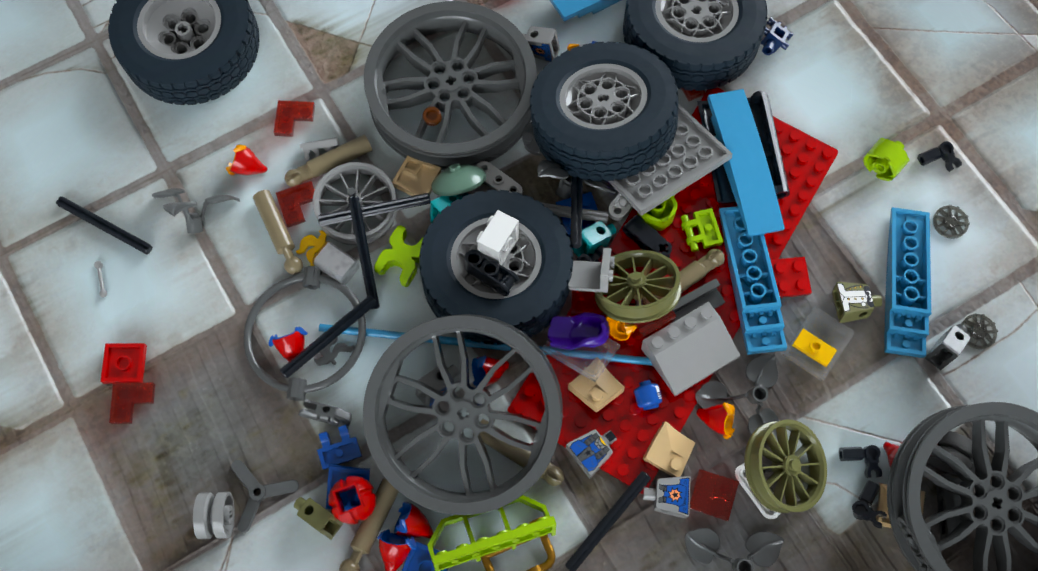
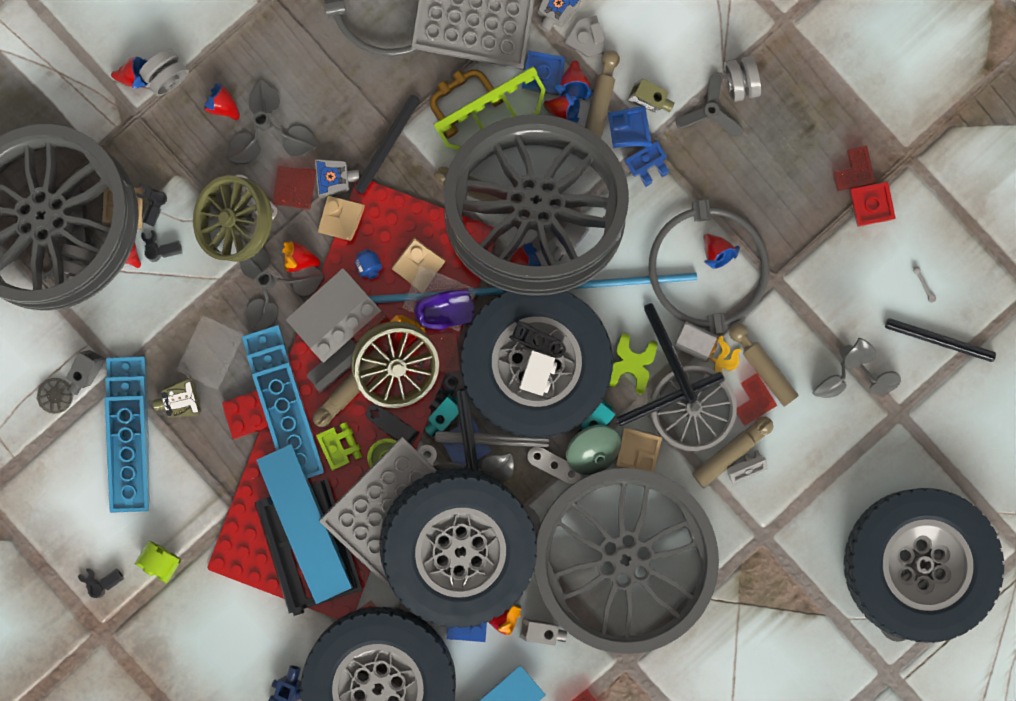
camera: 170 degrees right, 15 degrees up
(245, 162) = (817, 432): red hat -> none
(288, 113) = (790, 498): clear red plate -> none
(325, 413) = (657, 193): dark grey hinge -> none
(328, 336) = (682, 263): black axle -> none
(328, 356) = (687, 256): dark grey piece -> none
(365, 494) = (610, 118): red piece -> none
(432, 116) = (635, 512): reddish brown tile -> none
(591, 450) = (412, 202): torso -> none
(593, 275) = (440, 363): light grey bracket -> none
(814, 347) = (214, 344): yellow plate -> none
(951, 221) = (86, 509): clear smoke wheel -> none

